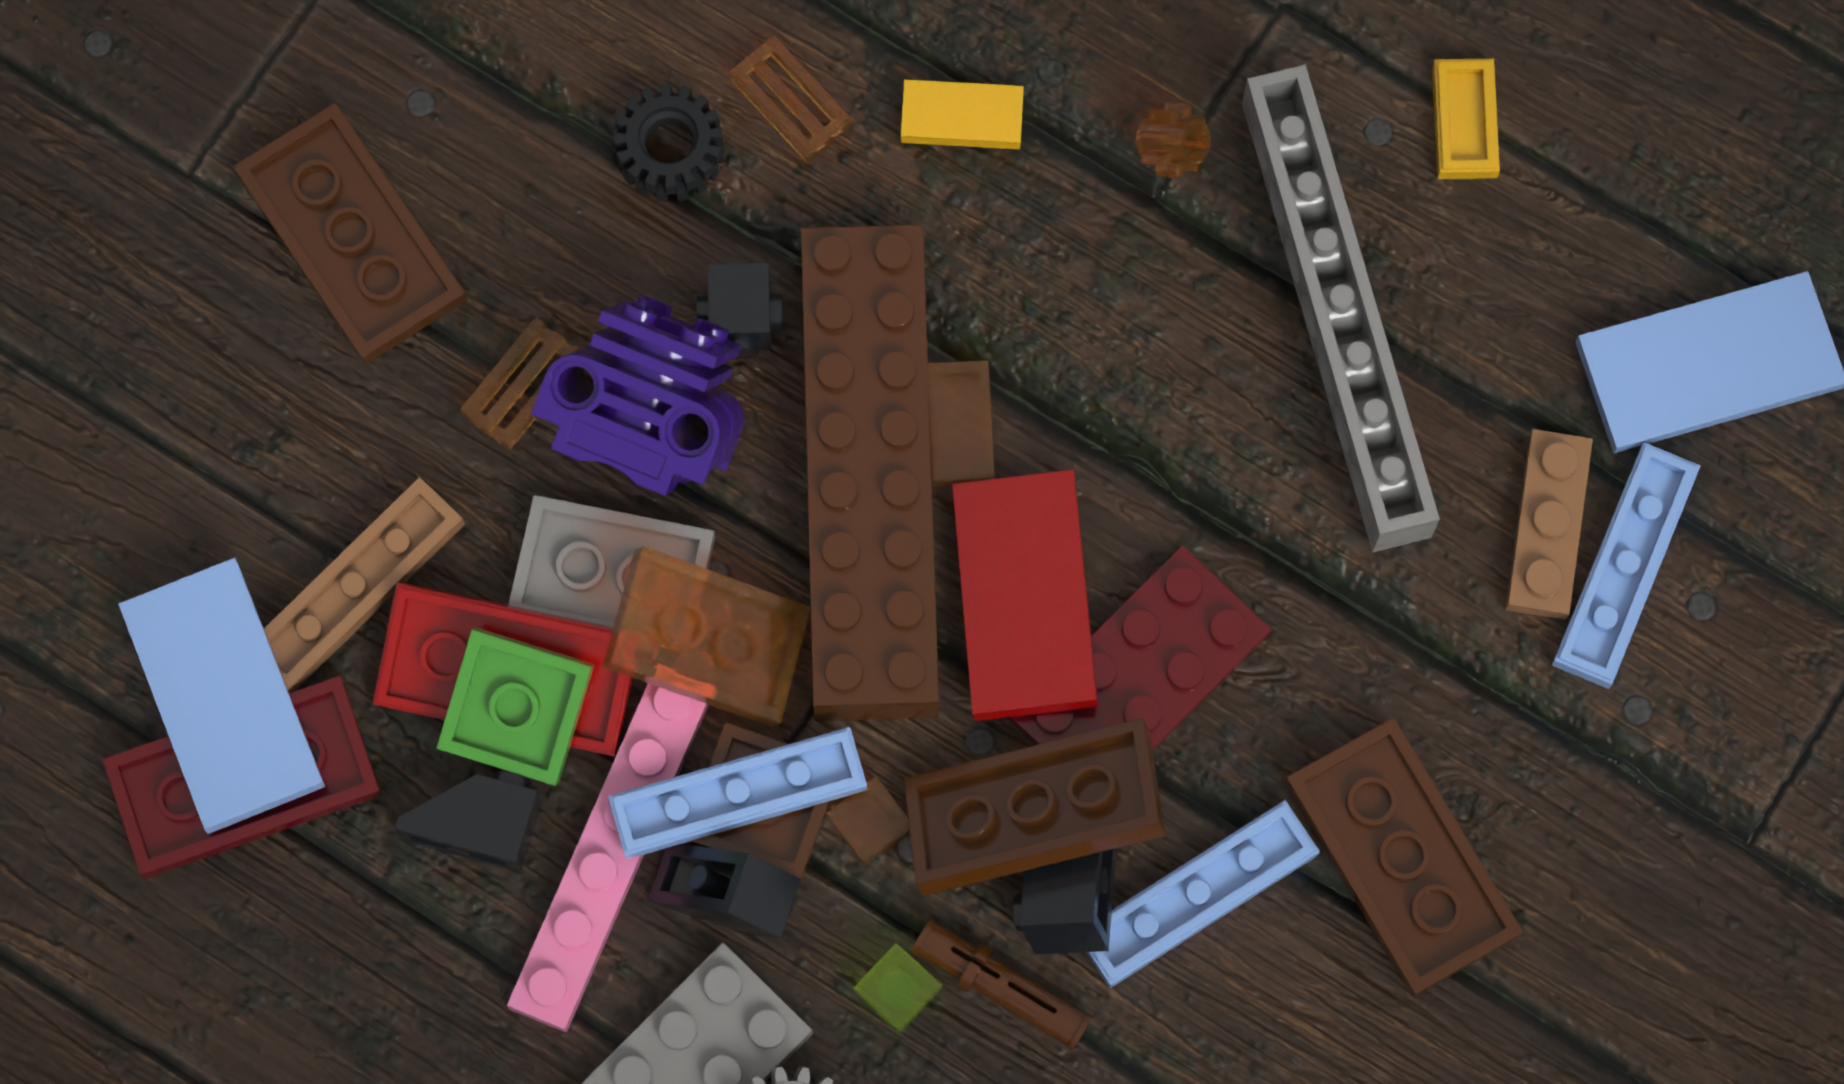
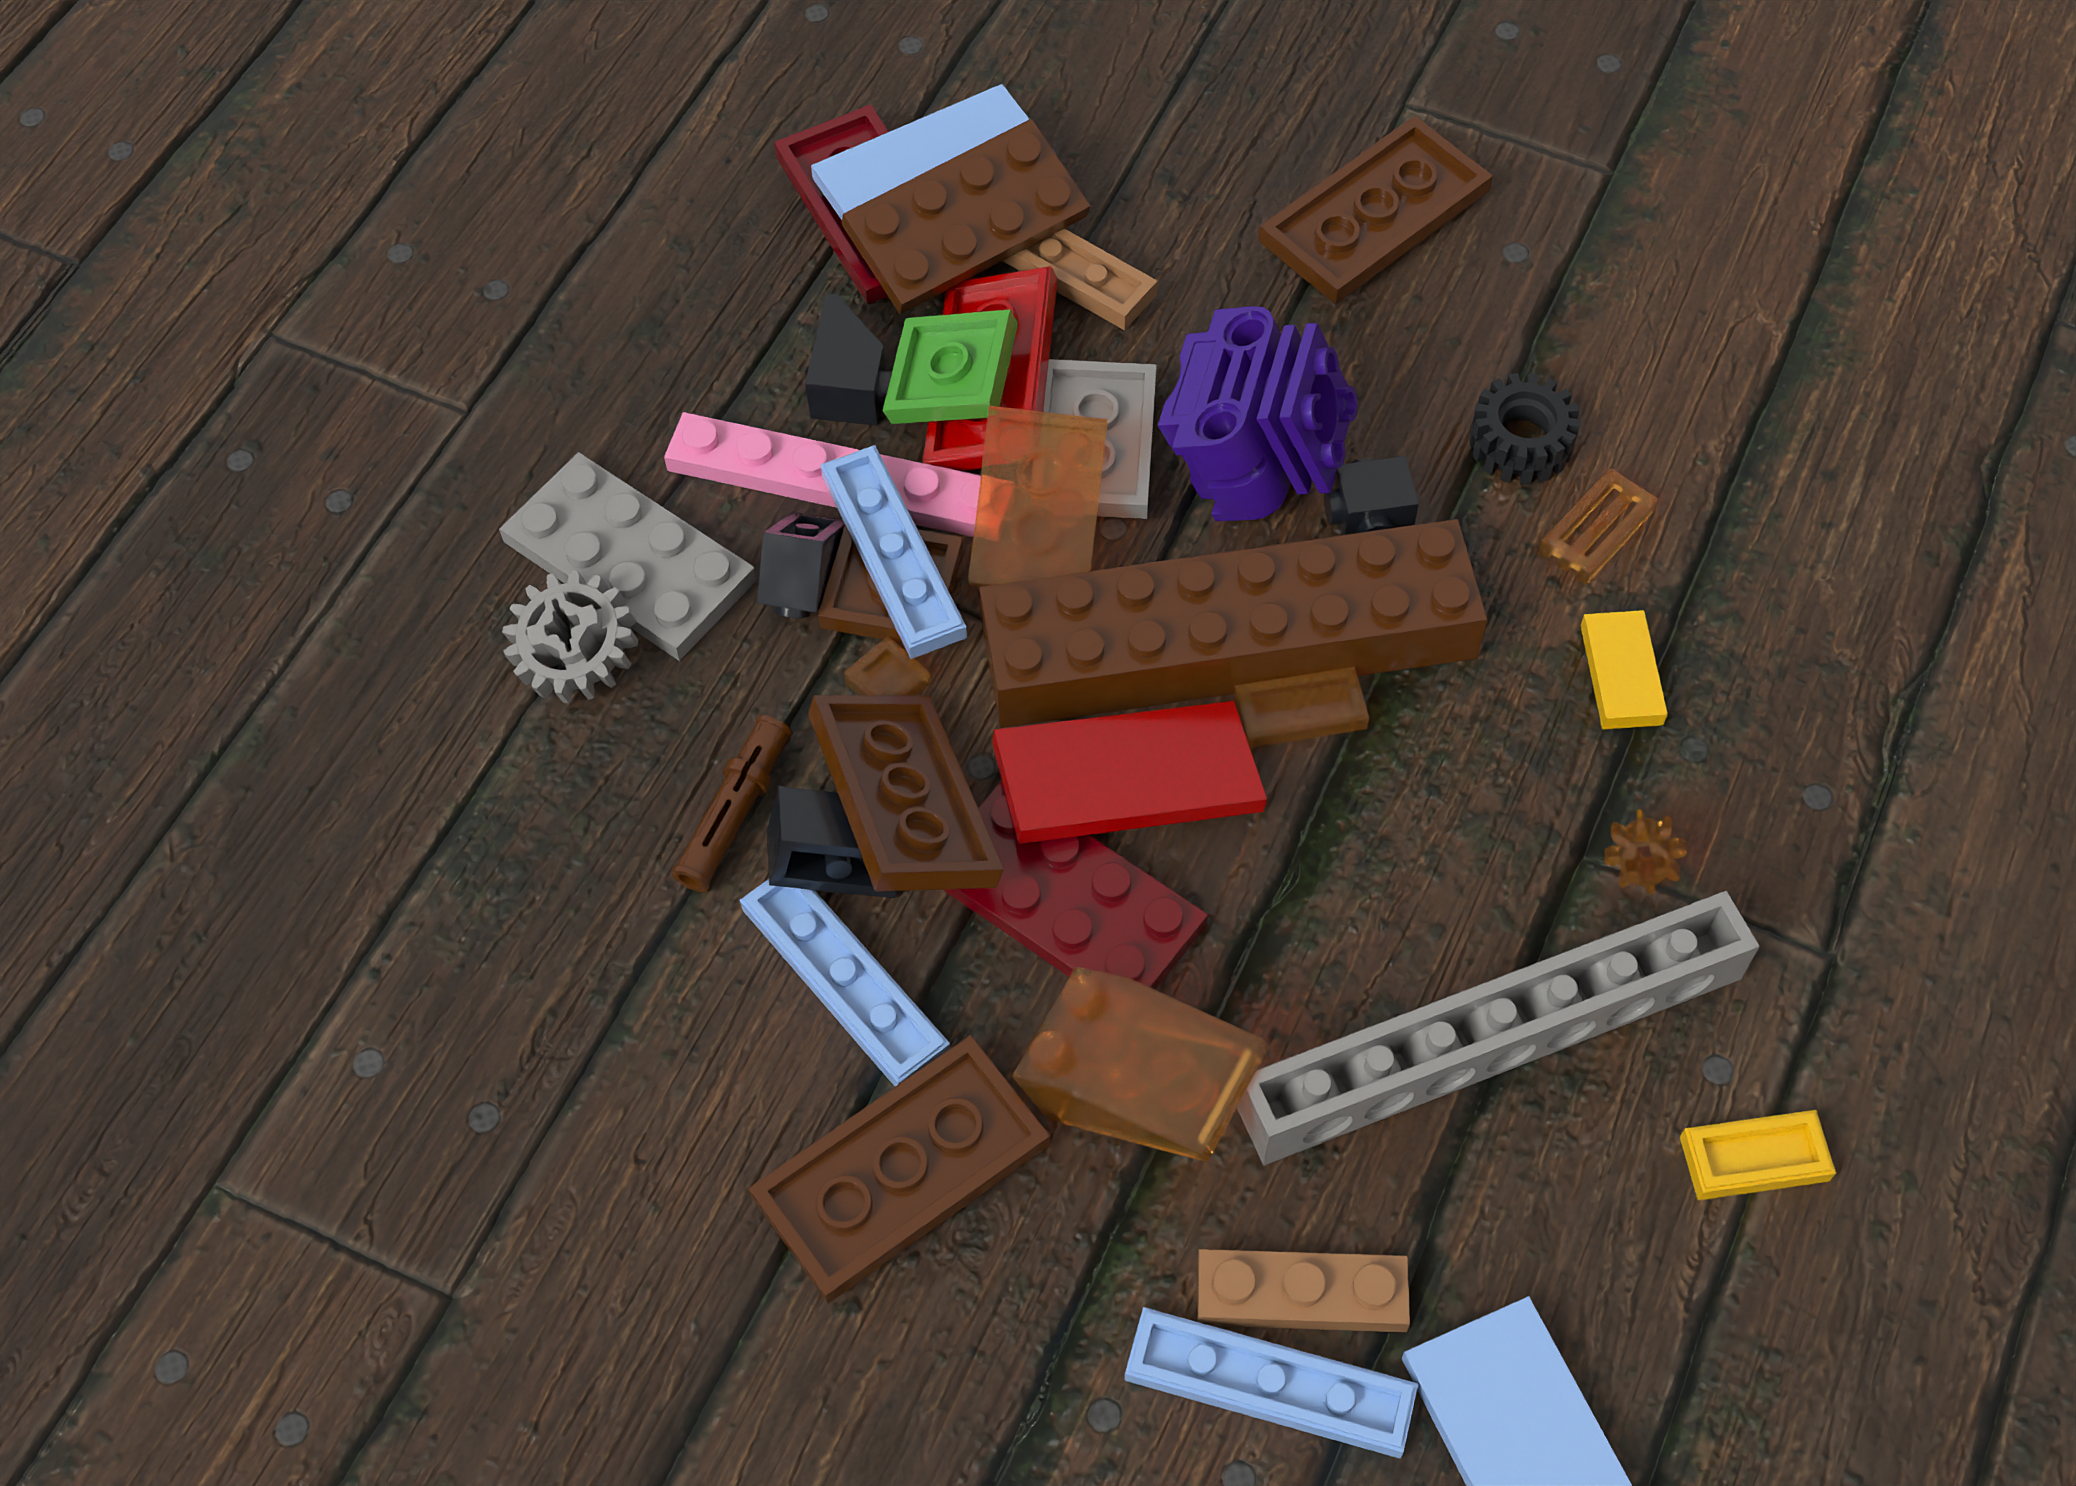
camera: 85 degrees right, 15 degrees down
(312, 665) = (965, 215): none -> reddish brown plate
(897, 988) = (720, 713): clear neon green plate -> none
(1351, 621) = (1138, 1065): none -> clear orange slope

